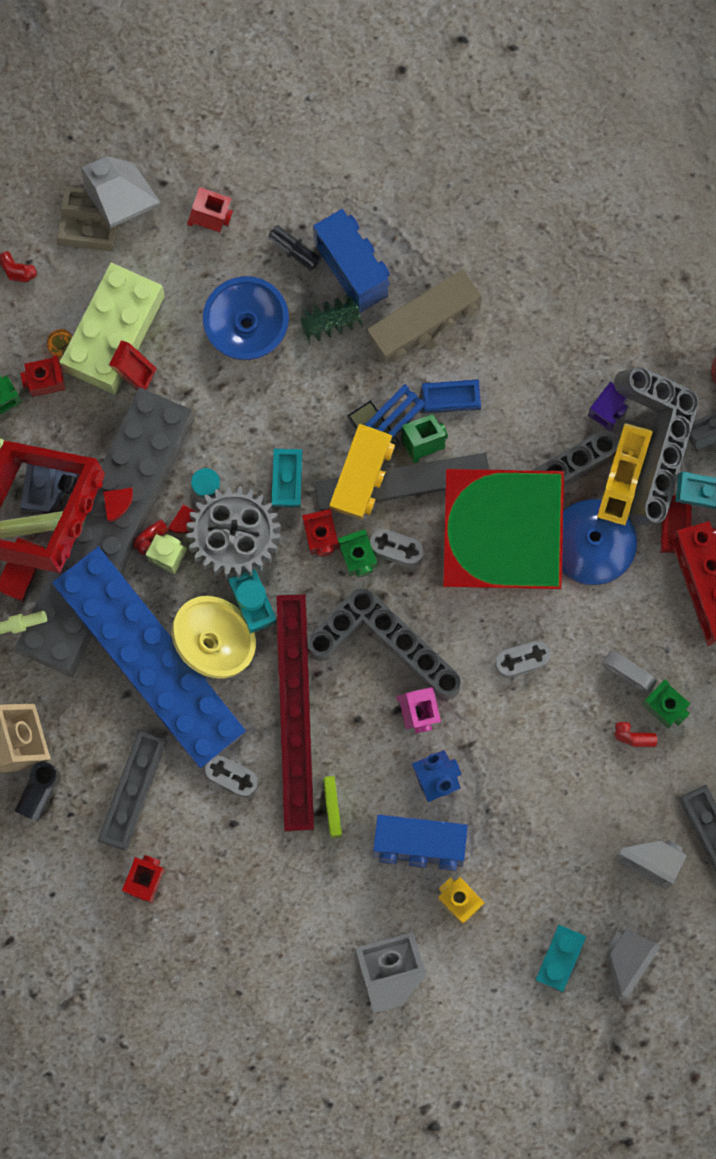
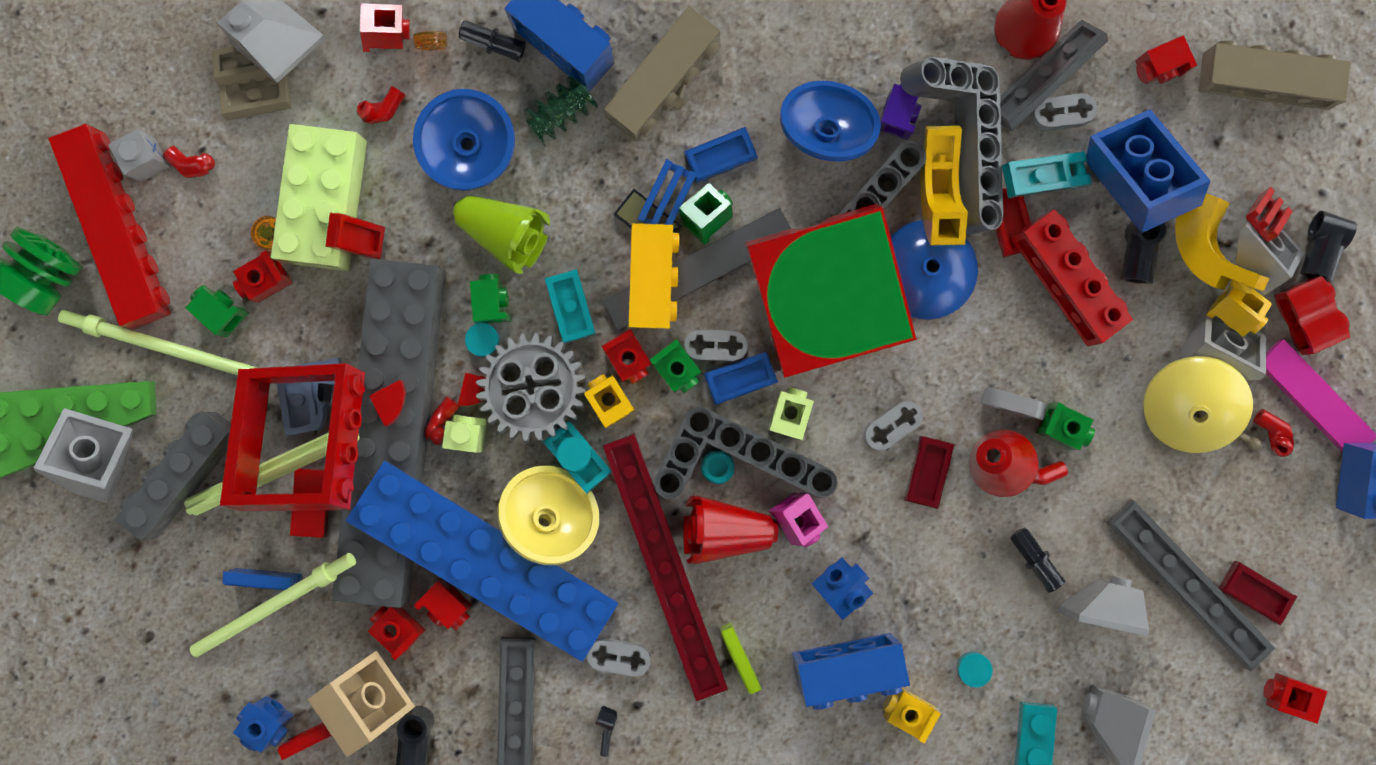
camera: 20 degrees left, 10 degrees up
(62, 700) = (407, 630): none -> red brick
(102, 686) = (445, 605): none -> red brick
(184, 275) = (381, 111): none -> red arm
(205, 825) = (606, 719): none -> black hand
(222, 452) = (489, 300): none -> green brick
(244, 232) = (430, 40): none -> clear orange tile
(254, 399) = (504, 229): none -> lime cone
(296, 575) = (608, 414): none -> yellow brick
(354, 697) = (724, 530): none -> red cone
(365, 647) = (717, 467): none -> teal tile
(408, 581) = (740, 378): none -> blue tile
(440, 609) = (794, 427): none -> yellowish green brick
(527, 883) = (974, 669): none -> teal tile
(541, 707) = (929, 472): none -> dark red tile
(548, 394) = (830, 121): none -> blue dish
(602, 713) = (1012, 472): none -> red cone
(608, 807) = (1037, 559): none -> black axle

